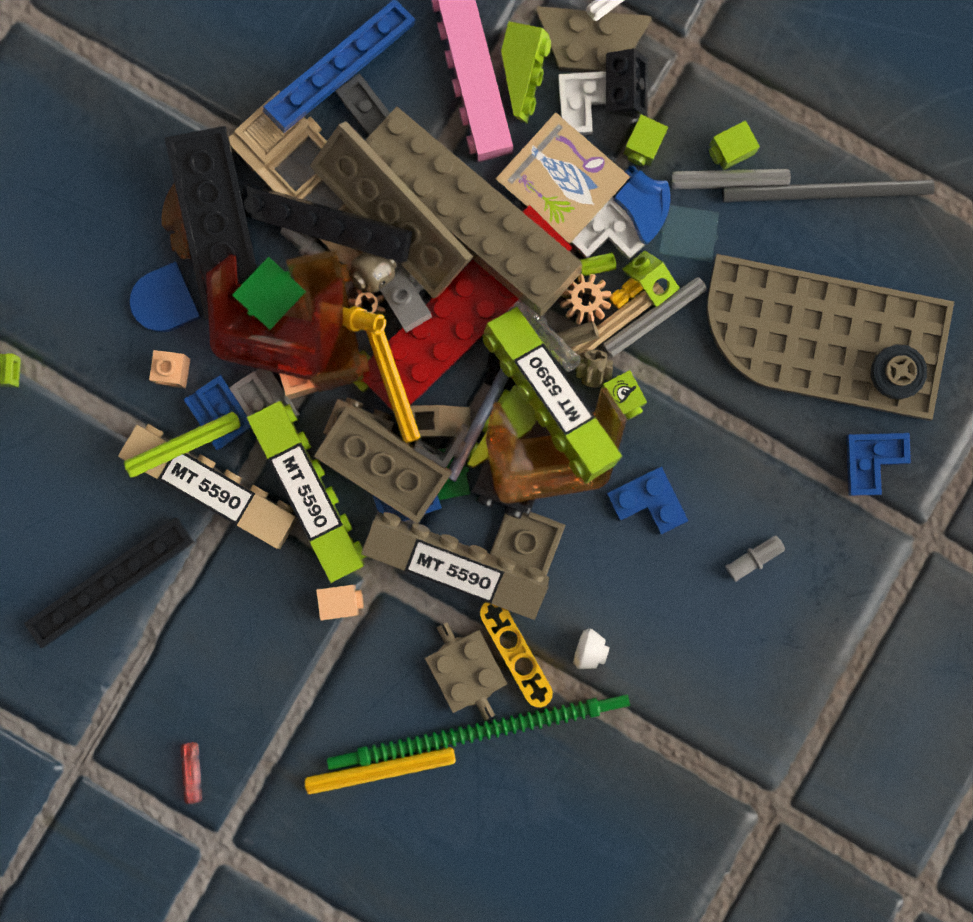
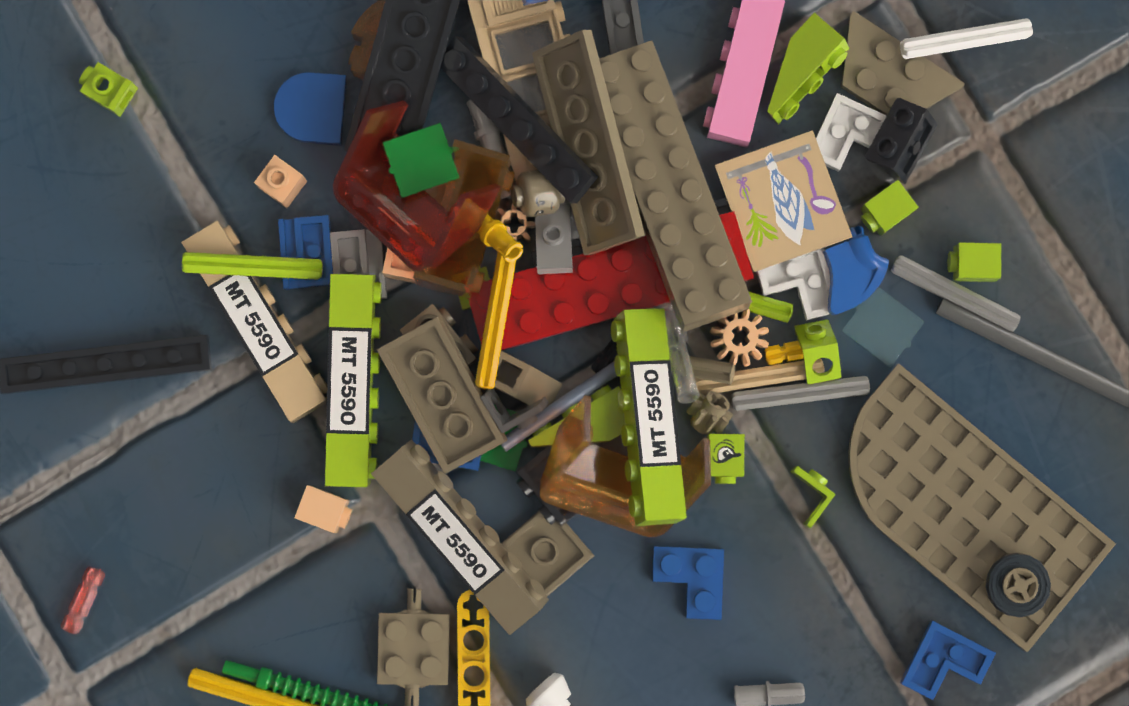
camera: 30 degrees right, 0 degrees up
(705, 377) = (817, 483): none -> lime bracket

